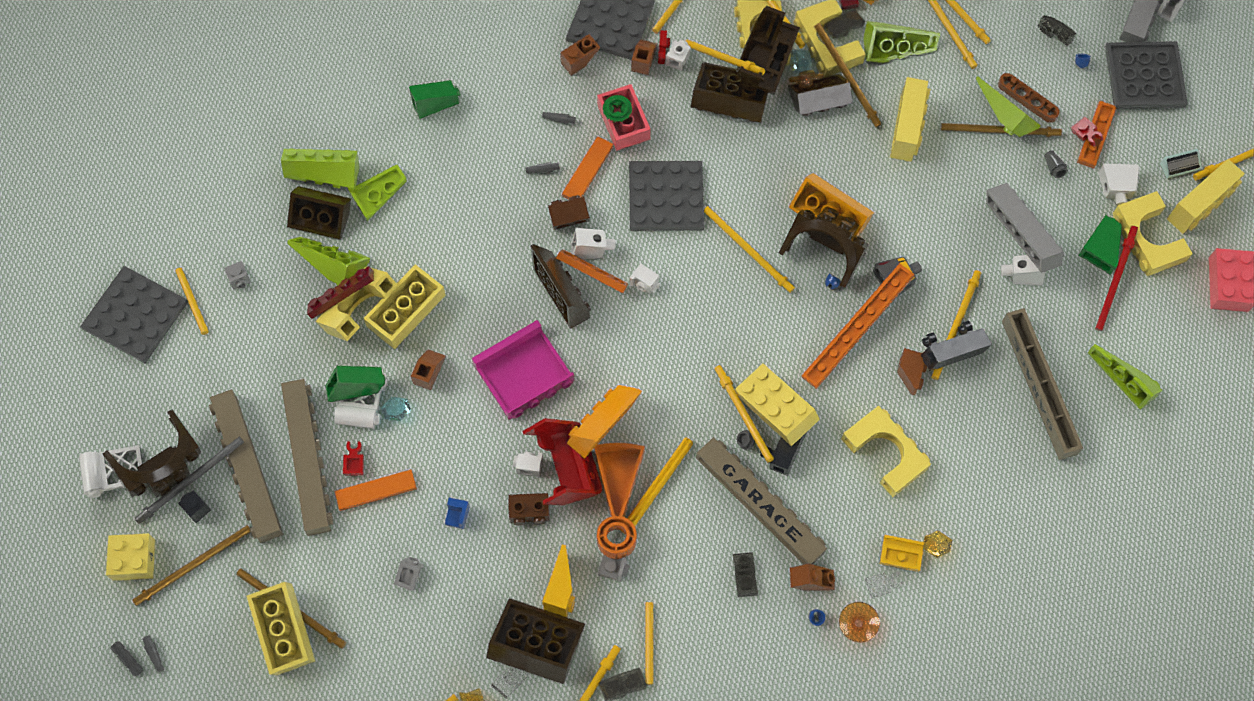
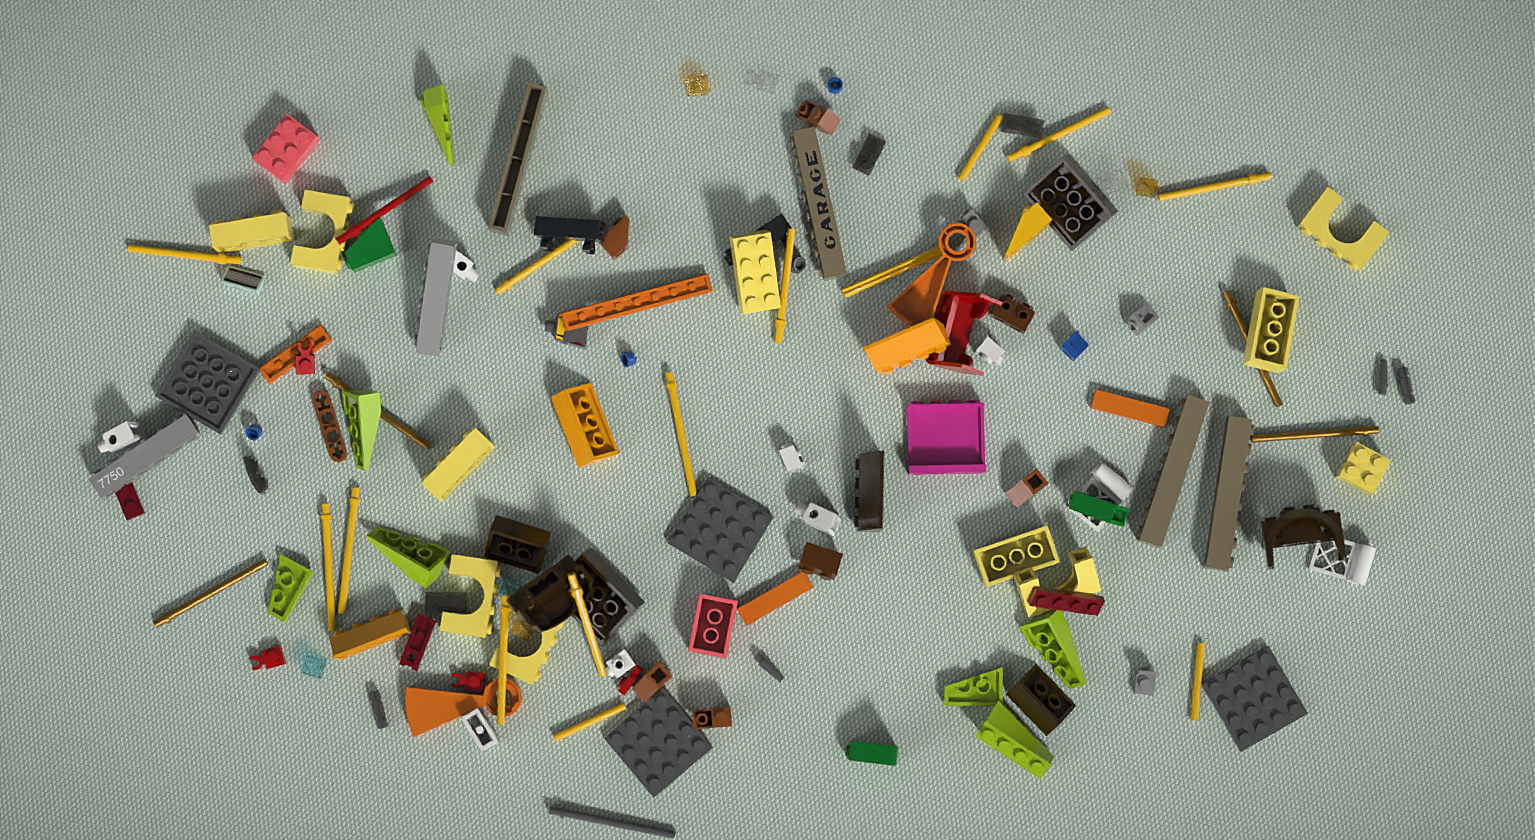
camera: 145 degrees left, 15 degrees up
(148, 511) = (1329, 502): dark grey bar -> none
(194, 506) = (1289, 482): black brick -> none
(353, 462) = (1136, 442): red plate -> none
(396, 408) = (1073, 470): clear light blue slope -> none
(546, 167) = (814, 624): dark grey animal -> none
(592, 270) = (833, 491): orange tile -> none
(617, 101) = (723, 621): green gear -> none
(805, 78) = (521, 566): clear orange plate -> none
(833, 232) = (602, 397): dark brown piece -> none
(847, 74) = (484, 495): pearl gold bar -> none
(864, 613) = (807, 52): clear orange dish -> none
(879, 425) = (672, 160): light yellow arch -> none
(901, 553) = (732, 94): yellow plate -> none
(1055, 164) = (355, 347): dark grey cone -> none
(1119, 181) = (313, 294): white torso -> none

